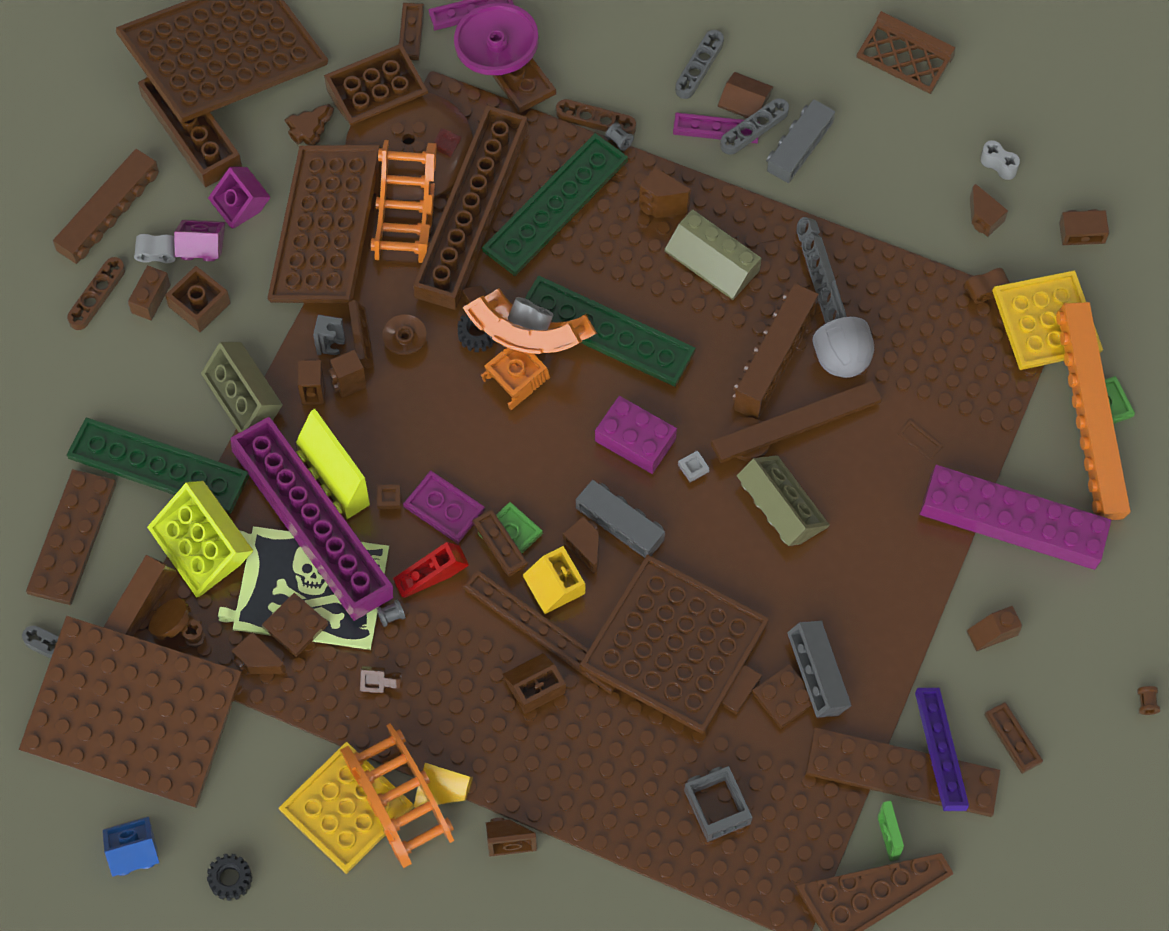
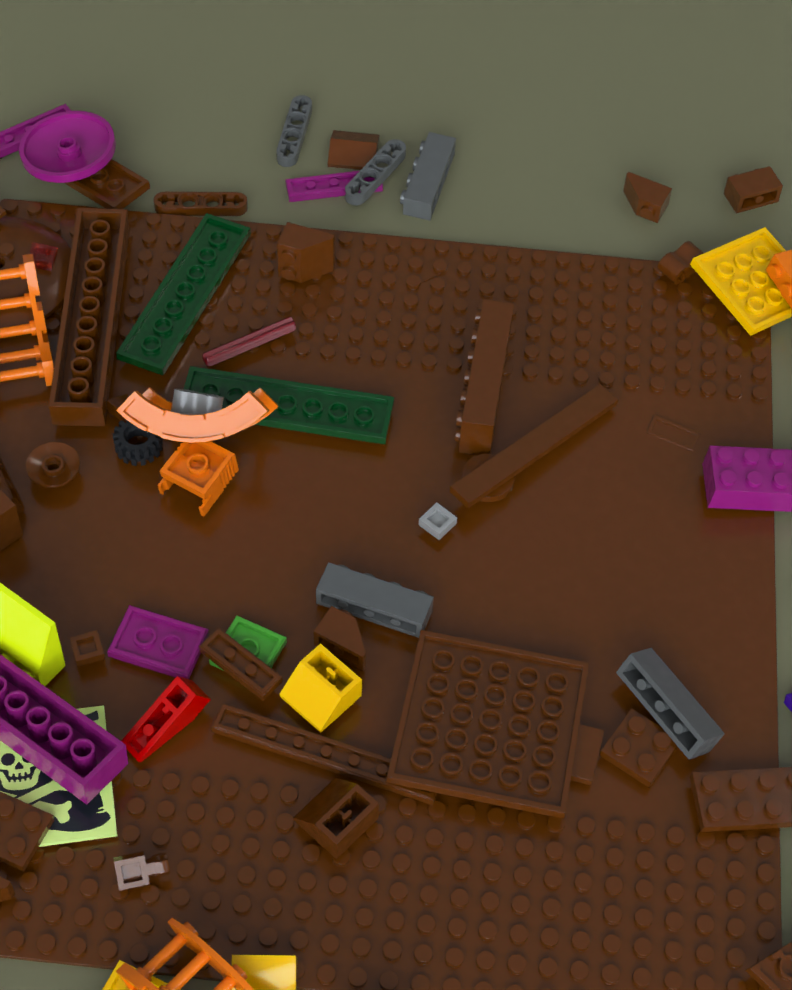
camera: 20 degrees left, 10 degrees down
(390, 613) = (130, 783): dark grey bush -> none
(594, 263) = (248, 341): none -> dark red axle
(619, 136) = (234, 211): dark grey bush -> none
(635, 434) = (359, 503): magenta brick -> none
(713, 254) = (378, 300): slope -> none
(727, 824) = (649, 898): dark grey window -> none
(782, 500) = (551, 531): olive slope -> none
(841, 344) = (557, 349): piece -> none
(914, 37) = (507, 60): reddish brown fence -> none
(997, 158) = (641, 148): light grey axle -> none

